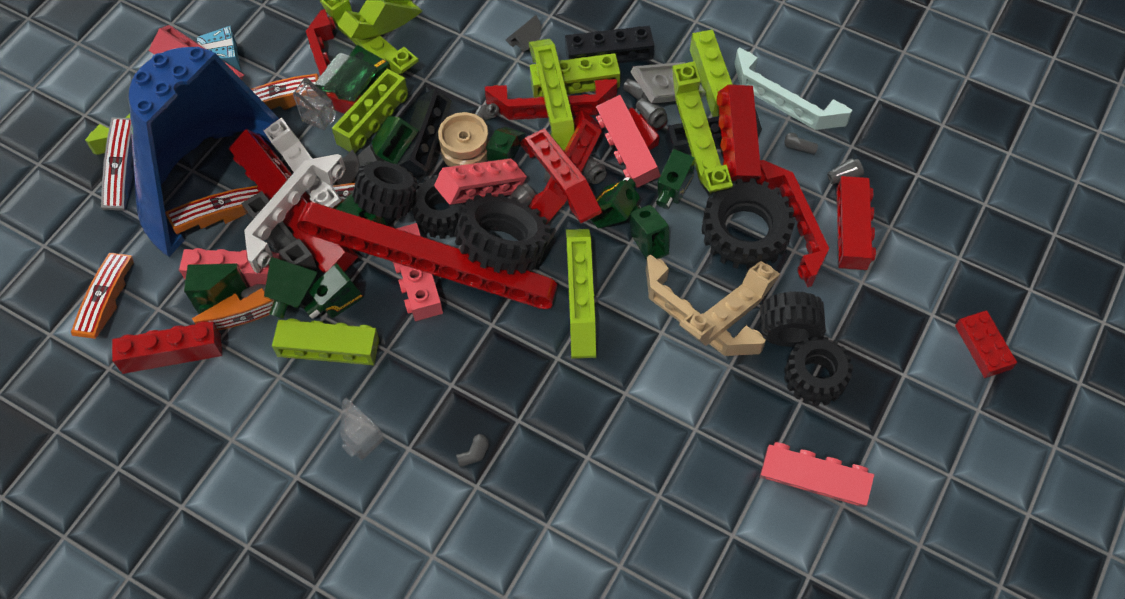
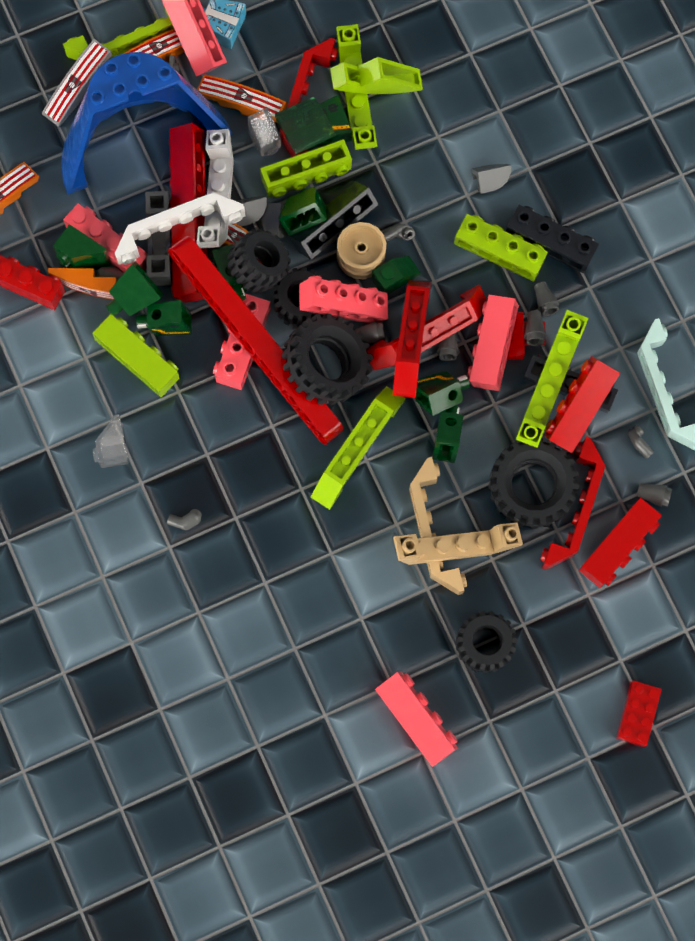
camera: 30 degrees right, 15 degrees up
(211, 209) = (124, 177): slope -> none
(535, 107) = (513, 280): red slope -> none
(553, 90) = (466, 252): lime slope -> none
(658, 82) = (561, 297): light grey tile -> none
(675, 178) = (511, 398): dark green torso -> none
(710, 66) = (620, 322): lime brick -> none
(792, 317) = (497, 589): black tyre -> none

